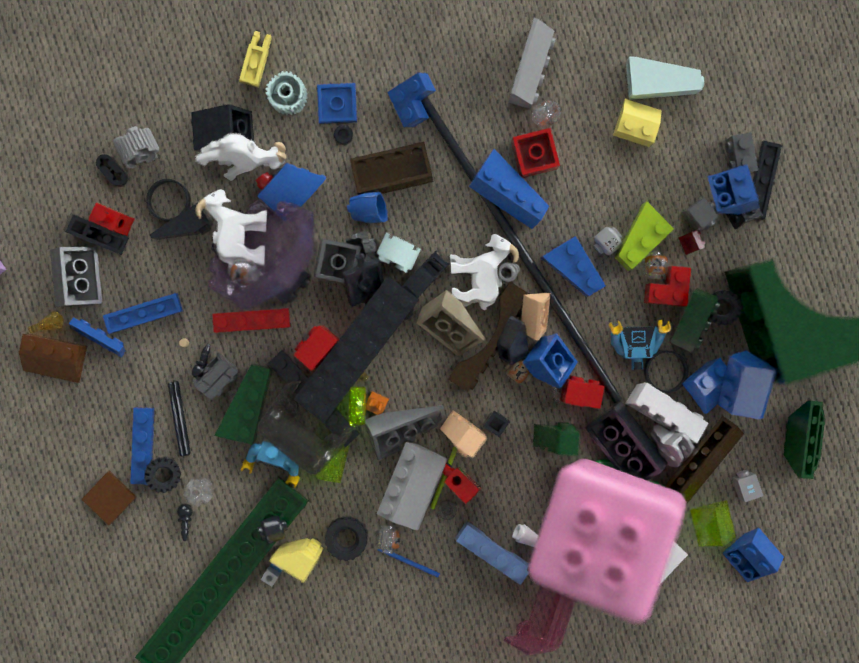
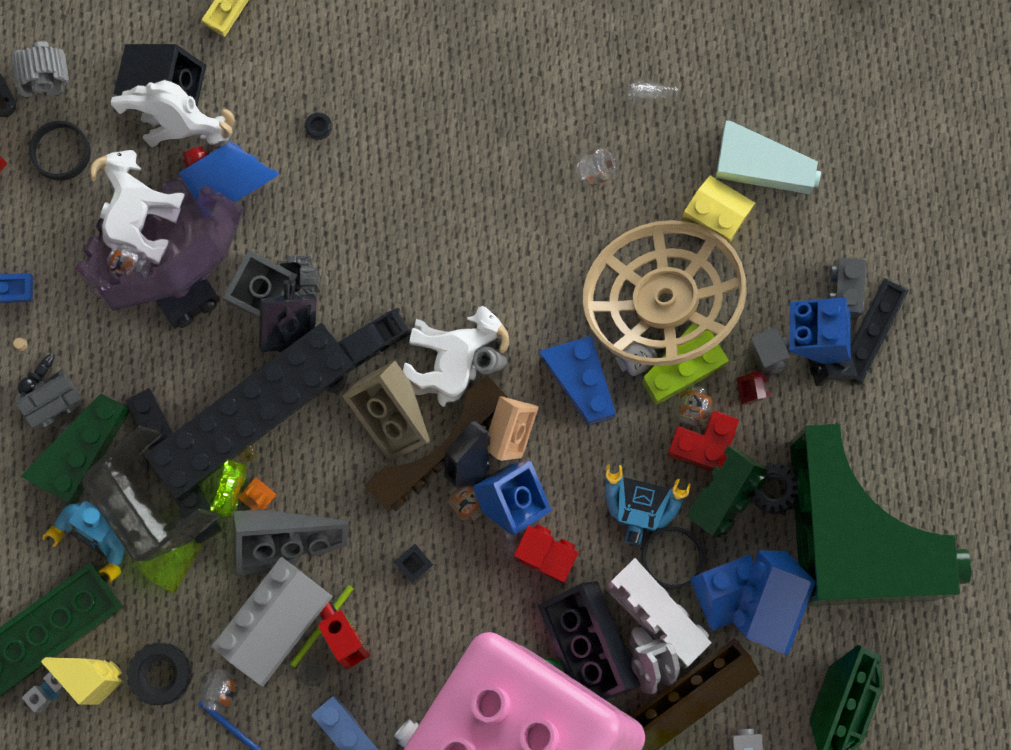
camera: 20 degrees right, 10 degrees down
(184, 225) = (70, 188): black slope -> none
(251, 320) = (120, 337): red plate -> none
(272, 529) = (59, 629): black head -> none
(281, 84) = (261, 66): light aqua brick -> none
(316, 347) = (195, 391): red brick -> none
(337, 103) = (322, 83): blue tile -> none
(368, 208) = (316, 225): blue helmet -> none
(392, 169) = (369, 188): dark brown slope -> none
(398, 252) = (345, 295): light aqua brick -> none
(408, 97) = (416, 101): blue brick -> none
(463, 434) = (364, 566): light nougat wedge -> none
(508, 190) = (517, 253): blue wedge -> none
(524, 255) = (516, 342): black piece -> none
(532, 64) = (592, 98): light grey slope -> none
(535, 153) = (567, 213): red brick -> none
(560, 438) = (491, 605): dark green wedge -> none
(565, 49) = (645, 91): none -> clear cone
(617, 182) = (660, 282): none -> tan dish

